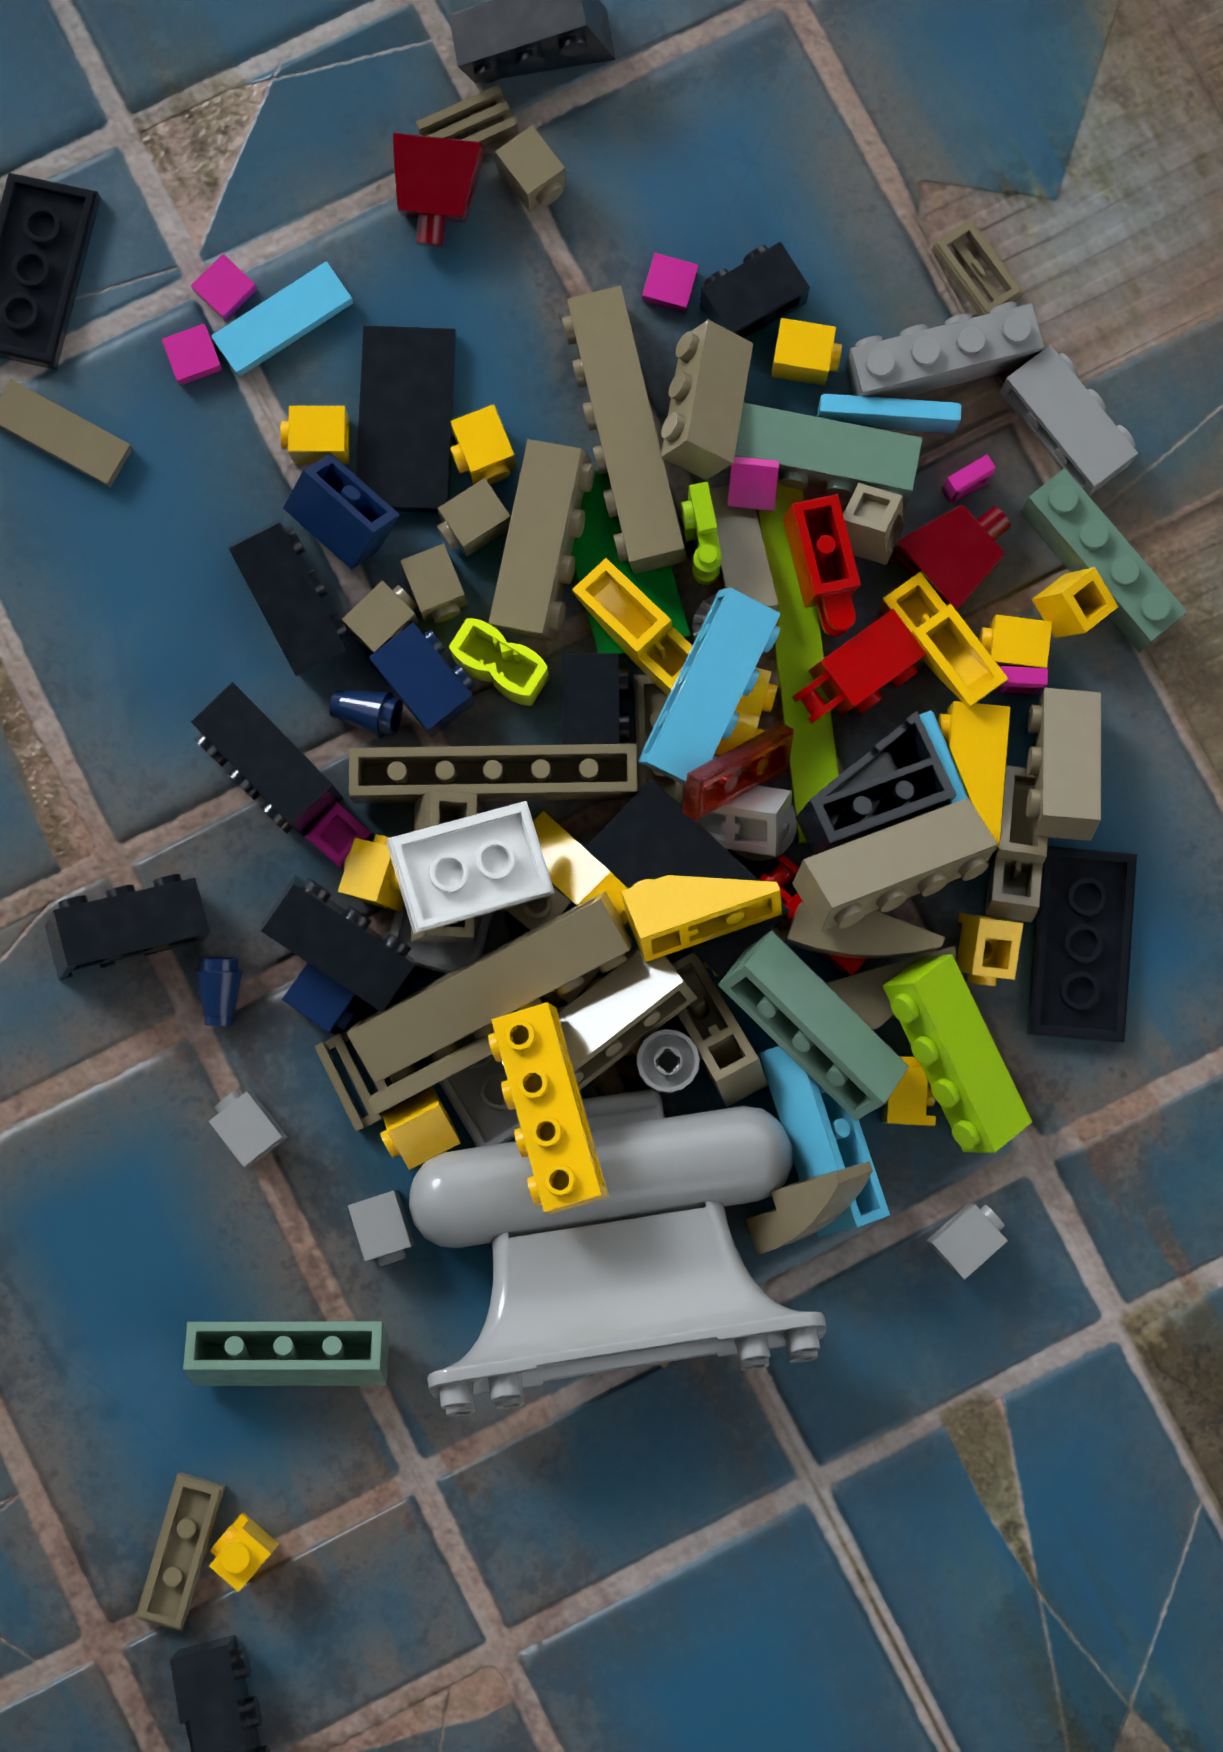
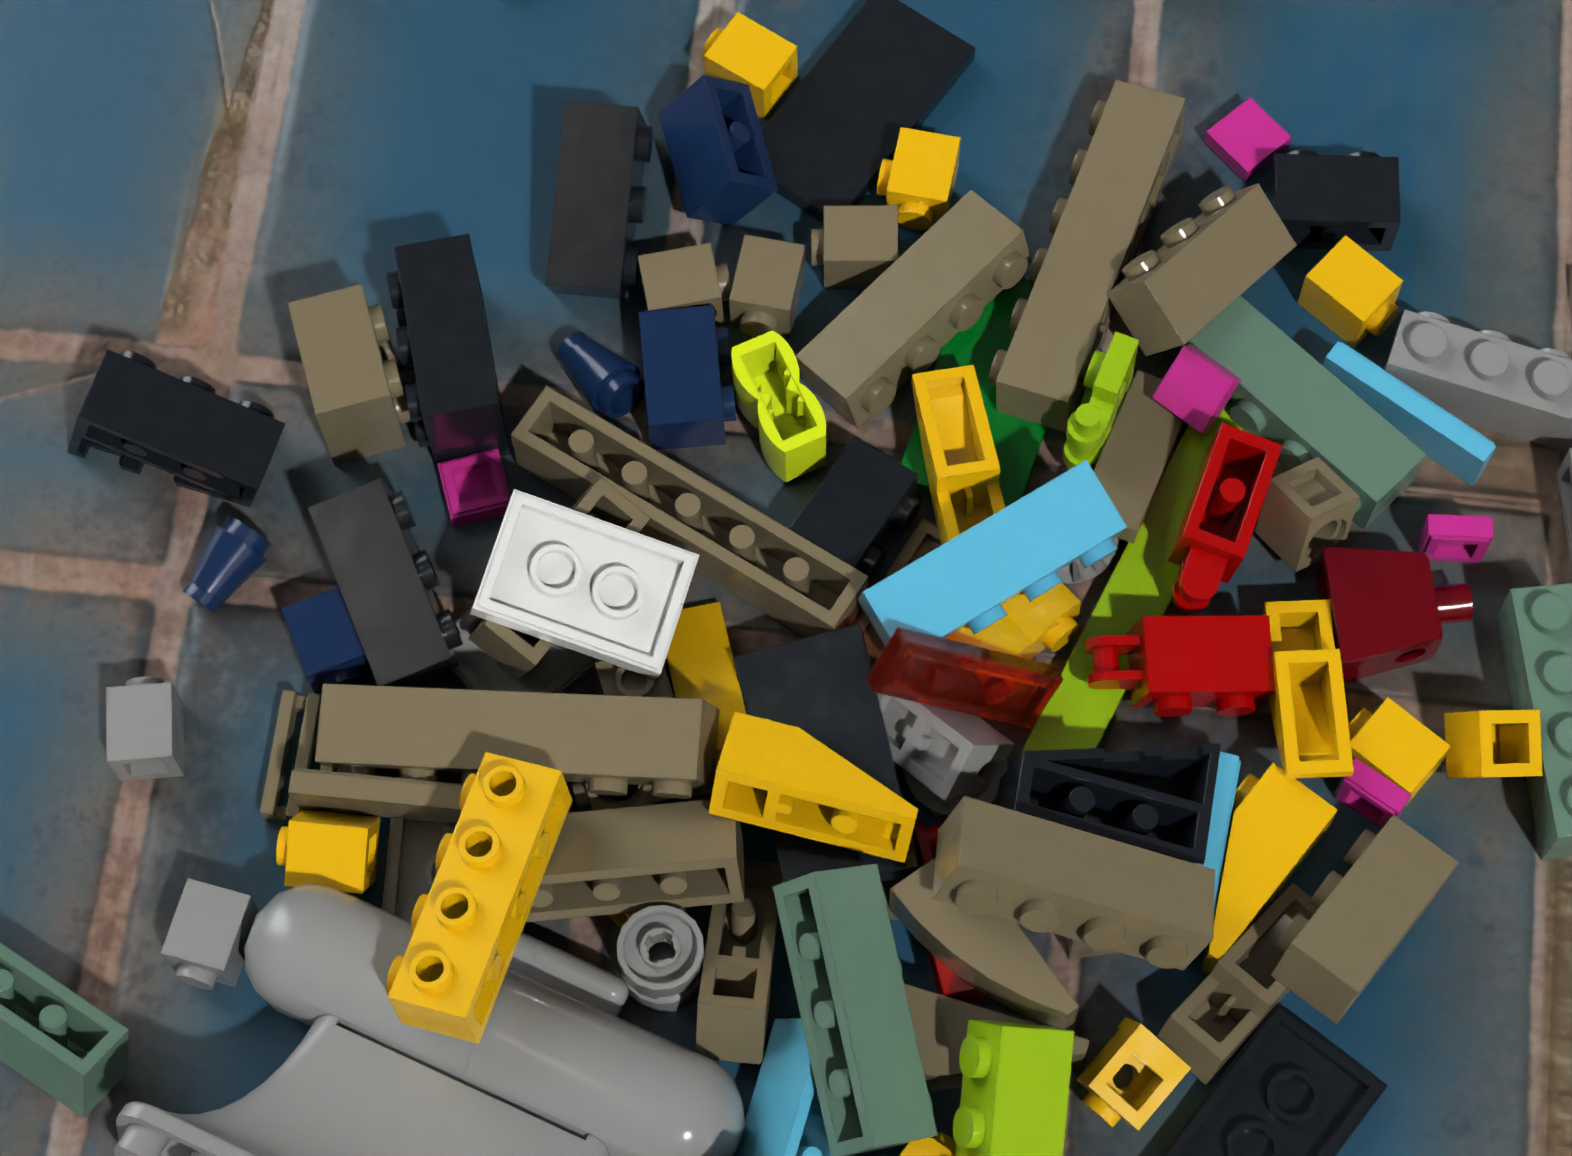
camera: 35 degrees right, 15 degrees down
(203, 812) = (350, 373): none -> dark tan brick
(371, 875) = (468, 539): yellow brick -> none

